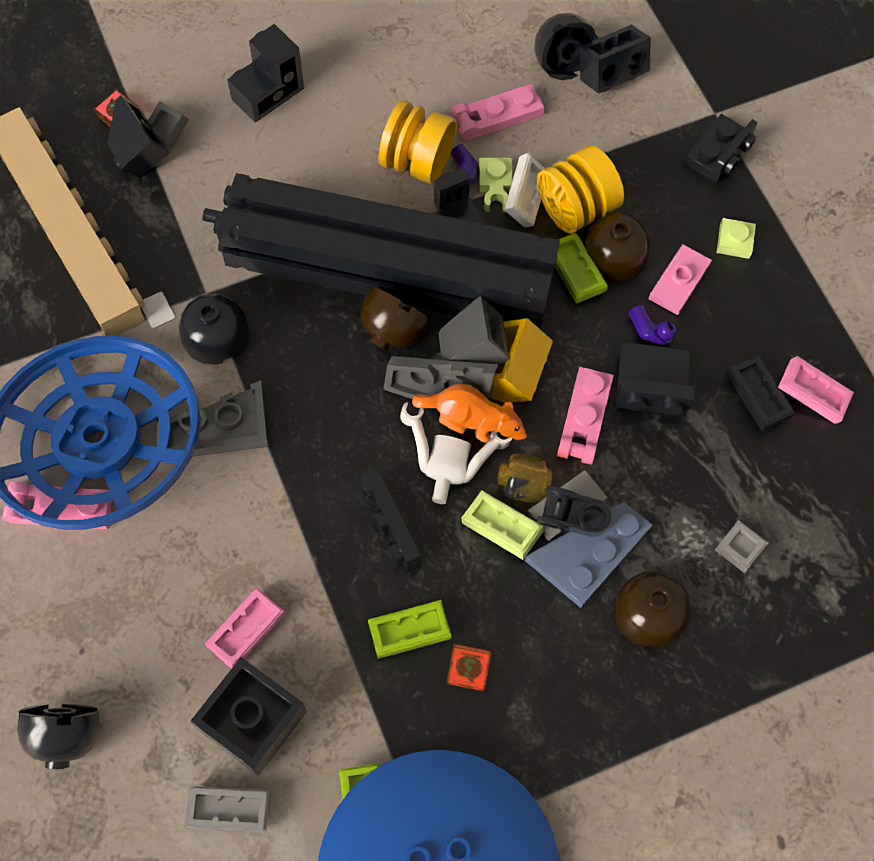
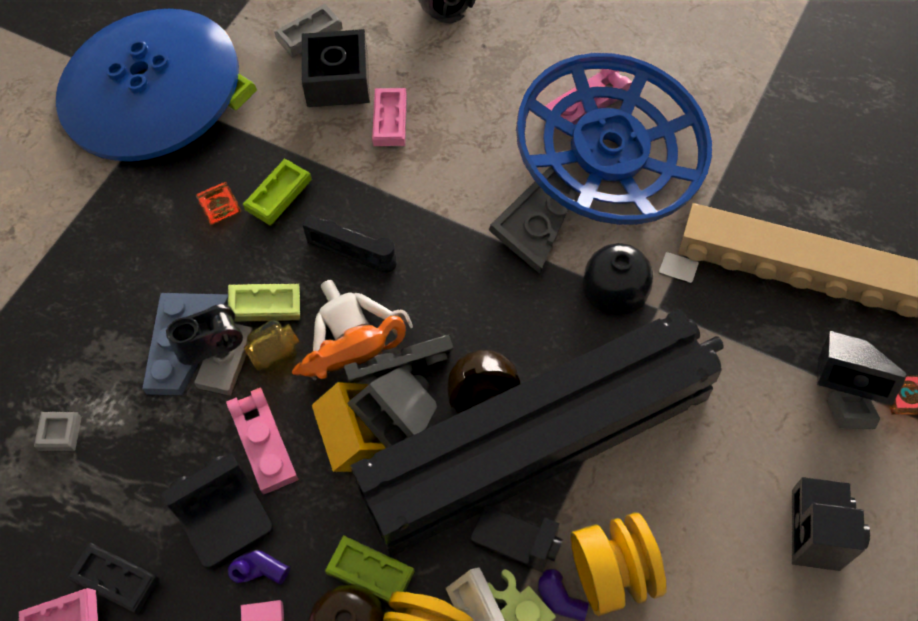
camera: 145 degrees right, 5 degrees down
(652, 609) = (103, 329): dark brown cylinder -> none

